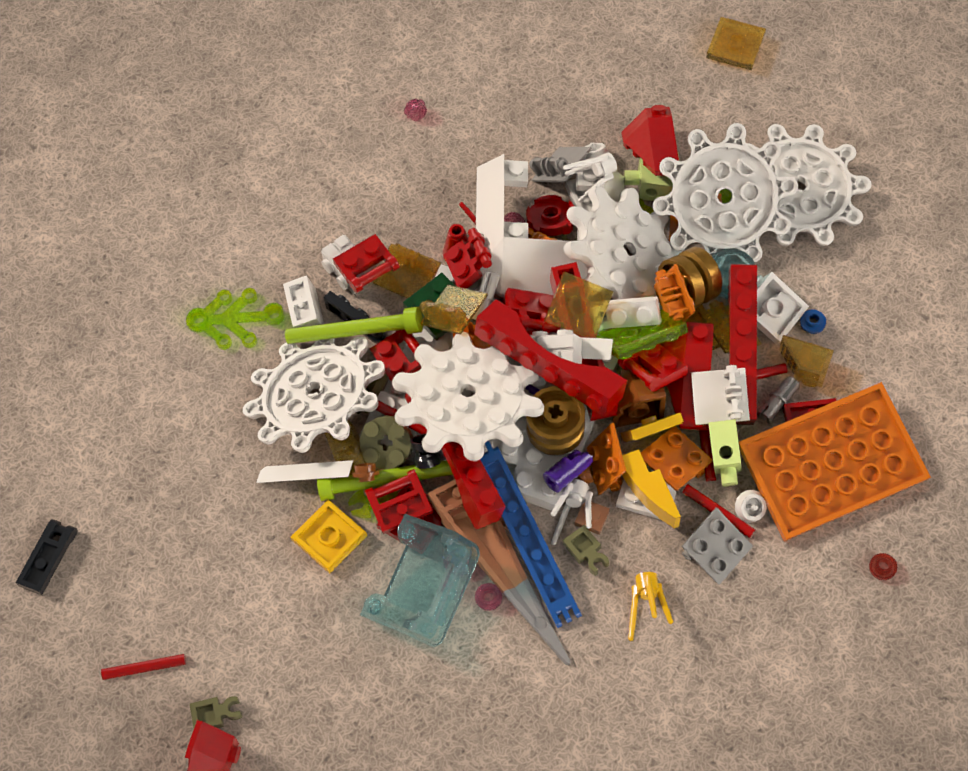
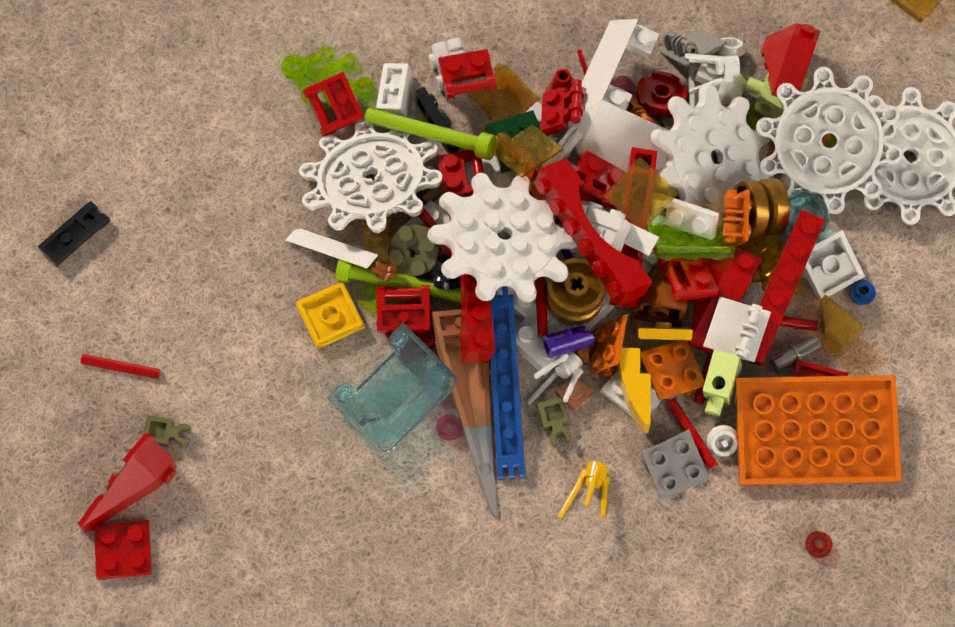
camera: 15 degrees right, 5 degrees up
(256, 332) = (341, 100): none -> red plate
(530, 451) = (541, 307): none -> red bar

